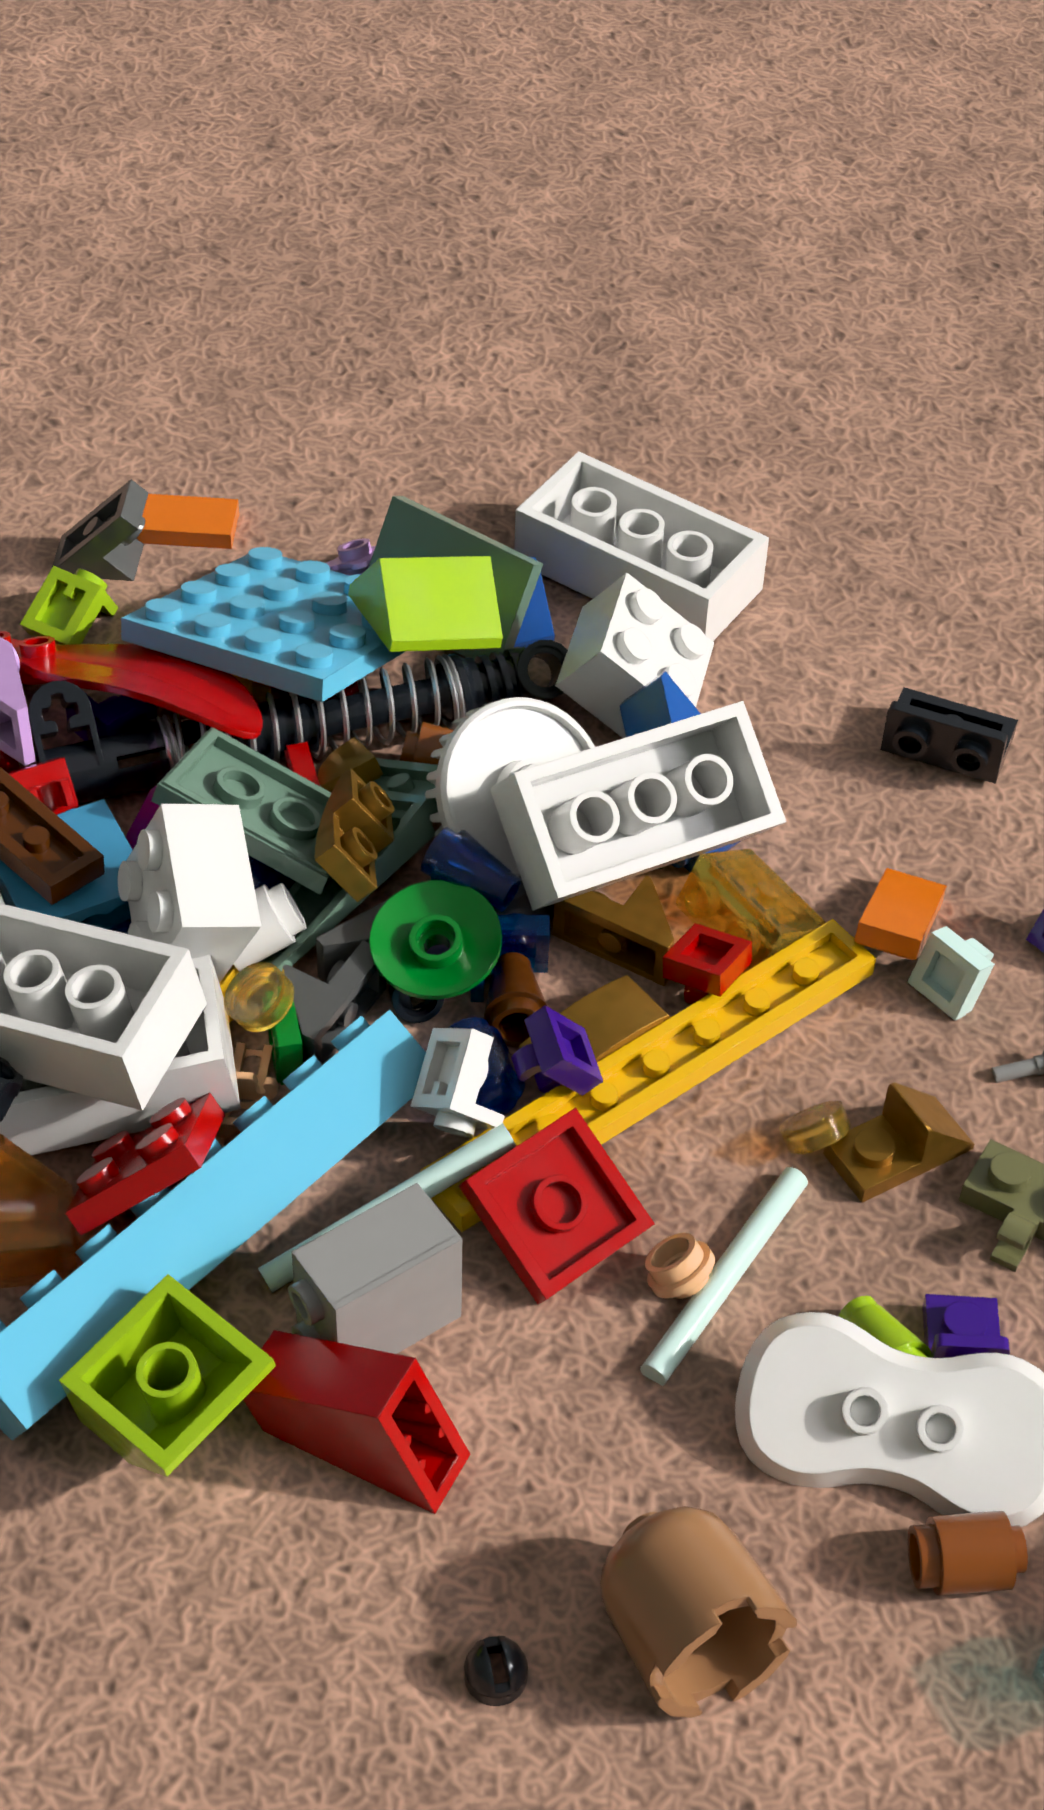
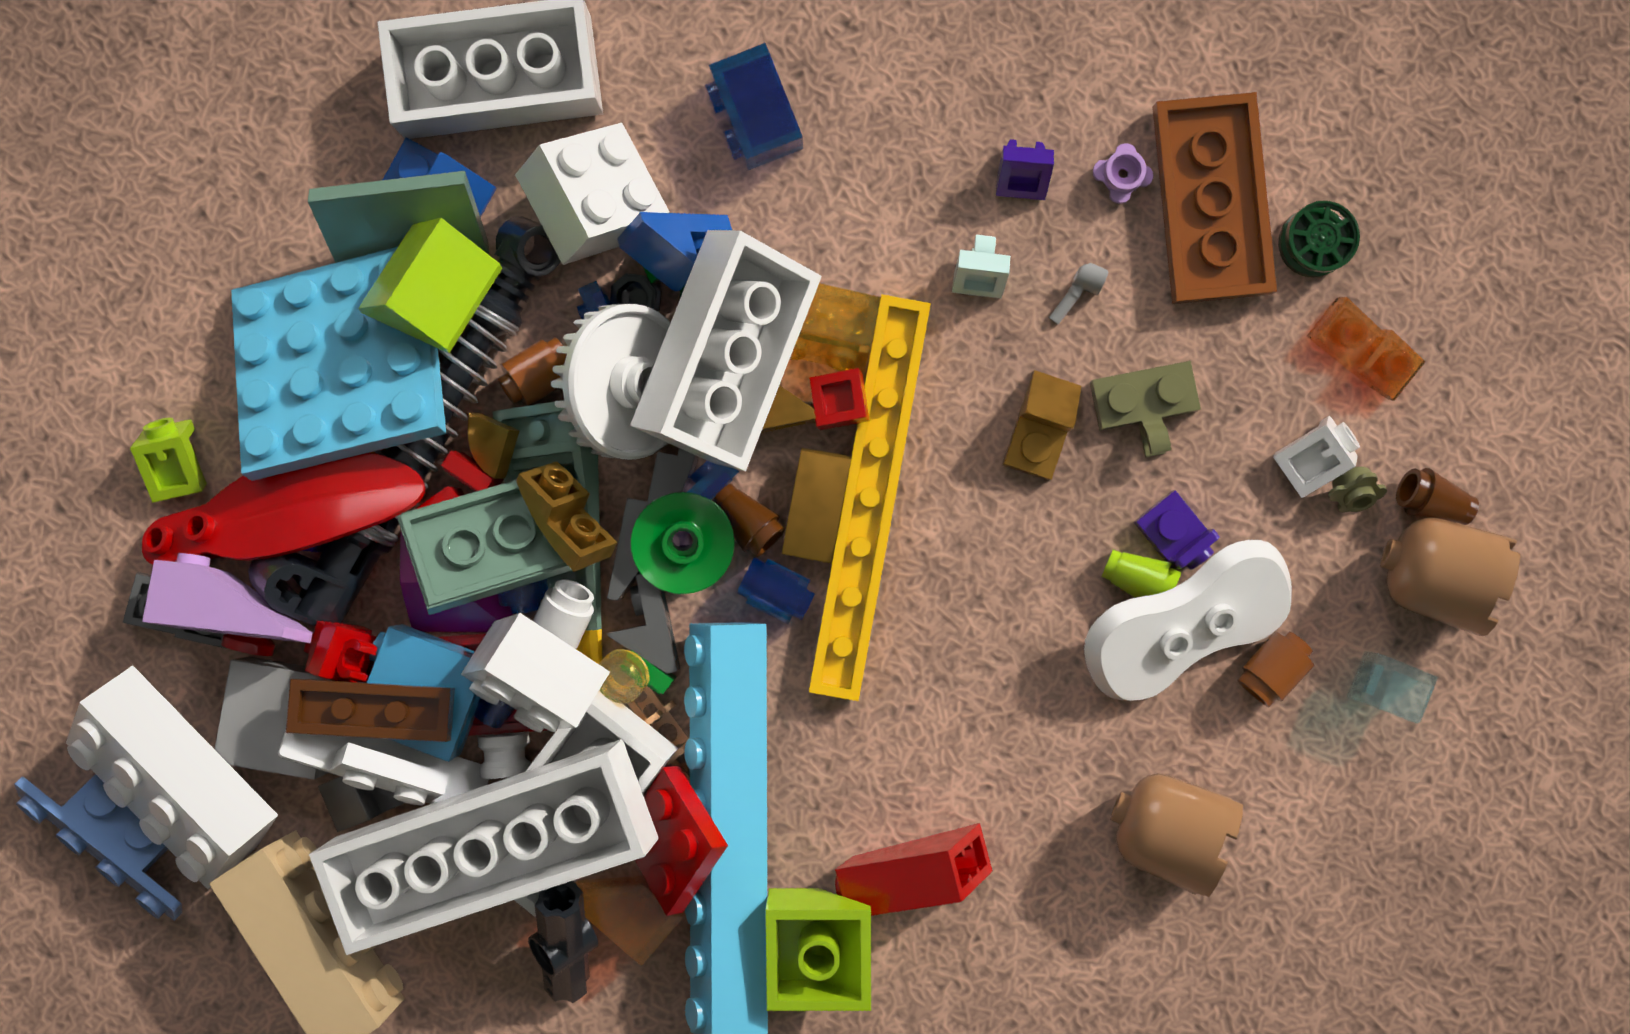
camera: 45 degrees left, 40 degrees up
(107, 537) = (125, 380): dark grey slope -> none
(189, 521) = (148, 306): orange tile -> none
(353, 557) = (306, 244): lavender plate -> none
(380, 1276) = (865, 801): light grey piece -> none
(432, 1180) = (815, 731): light aqua bar -> none
(451, 1081) = (785, 633): white bracket -> none
(467, 863) = (657, 477): clear blue cone -> none
(480, 1675) = (1103, 919): black hinge -> none
(556, 1205) = (903, 651): red plate -> none
(557, 1054) = (824, 557): dark purple tile -> none
(679, 1266) = (985, 625): light nougat plate -> none
(724, 1276) = (1018, 597): light aqua bar -> none
(815, 1127) = (992, 461): clear yellow tile -> none
(845, 722) = (755, 106): none -> clear blue brick
(900, 914) = (916, 250): orange tile -> none
(948, 734) = (826, 59): black bracket -> none

